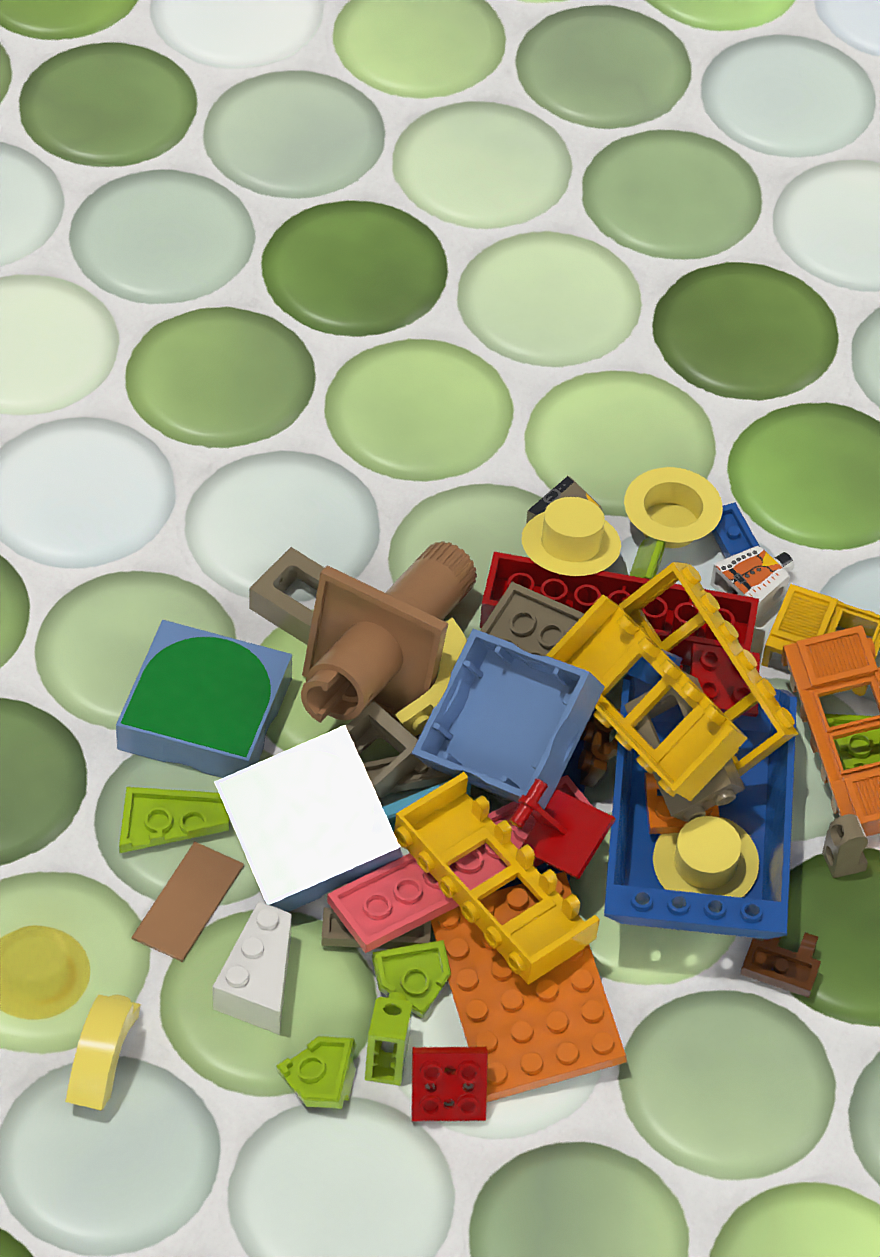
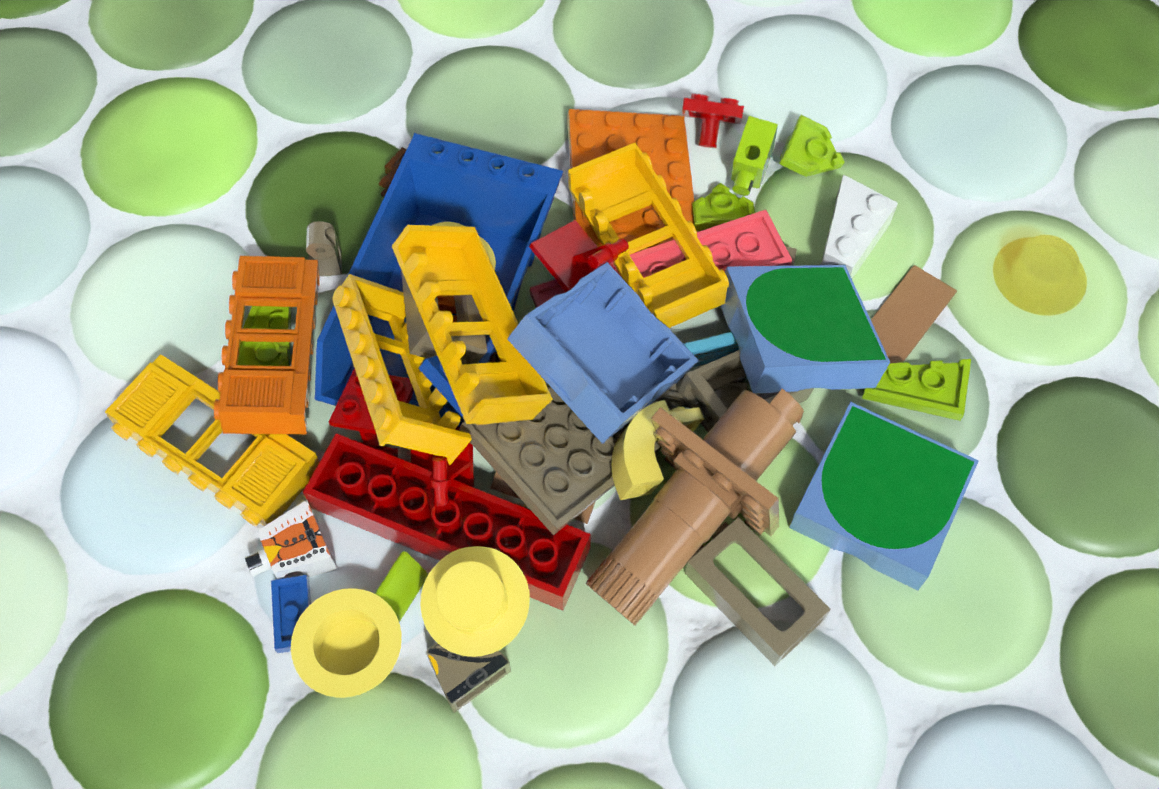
camera: 165 degrees left, 10 degrees up
(99, 1050) = (985, 189): light yellow arch -> none

